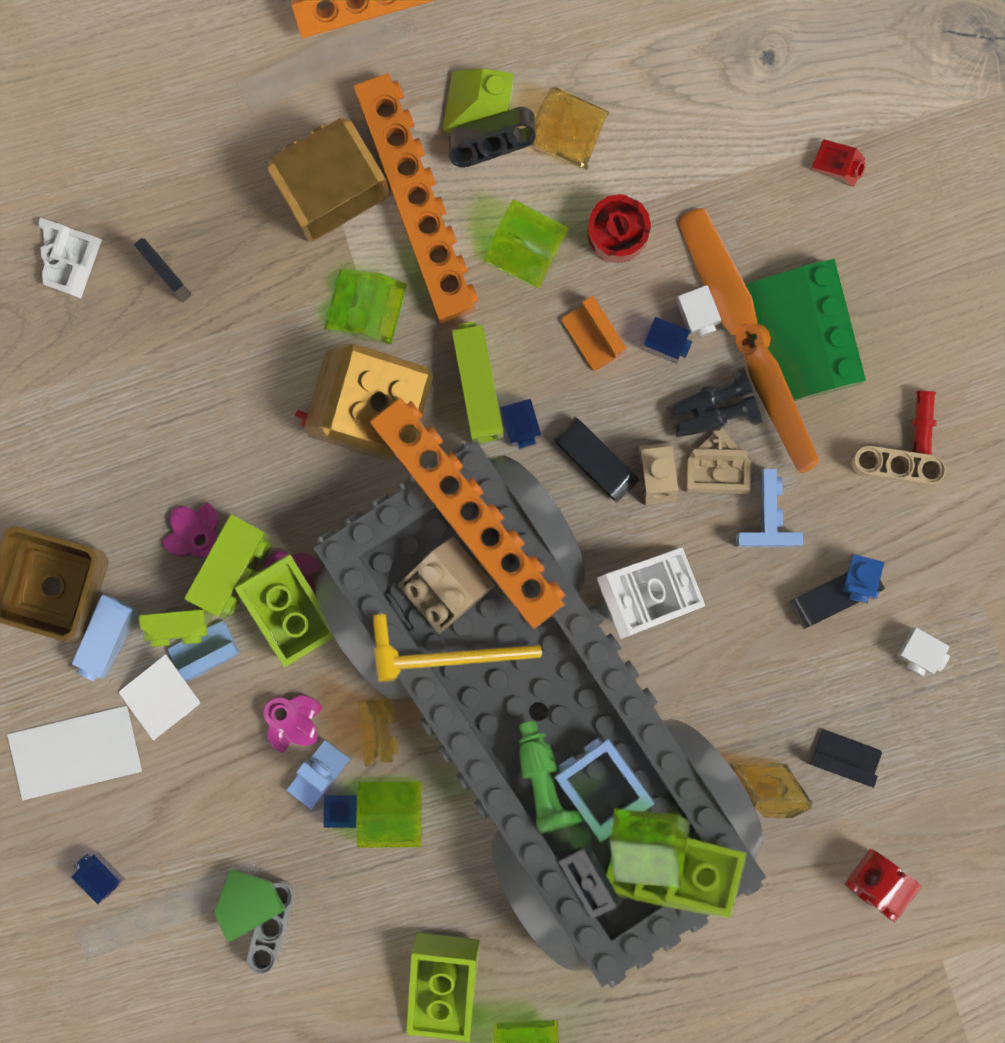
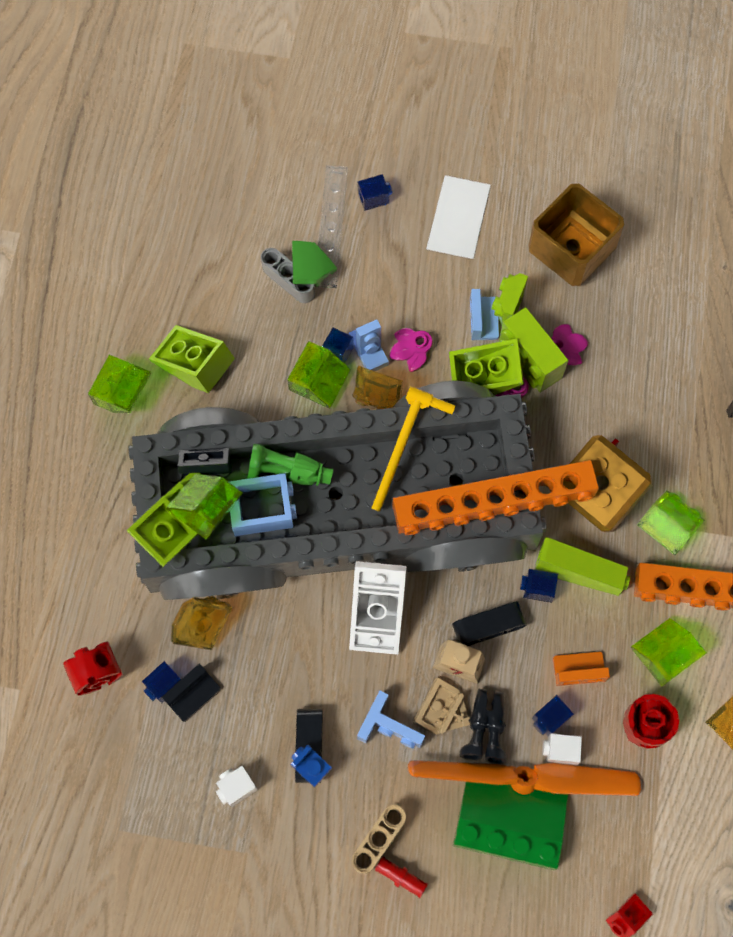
camera: 115 degrees right, 15 degrees down
(104, 637) = (526, 259): light blue slope -> none
(159, 697) = (468, 275): white sticker -> none
(446, 584) = (451, 465): tan slope -> none
(854, 798) = (160, 681): none -> clear blue brick

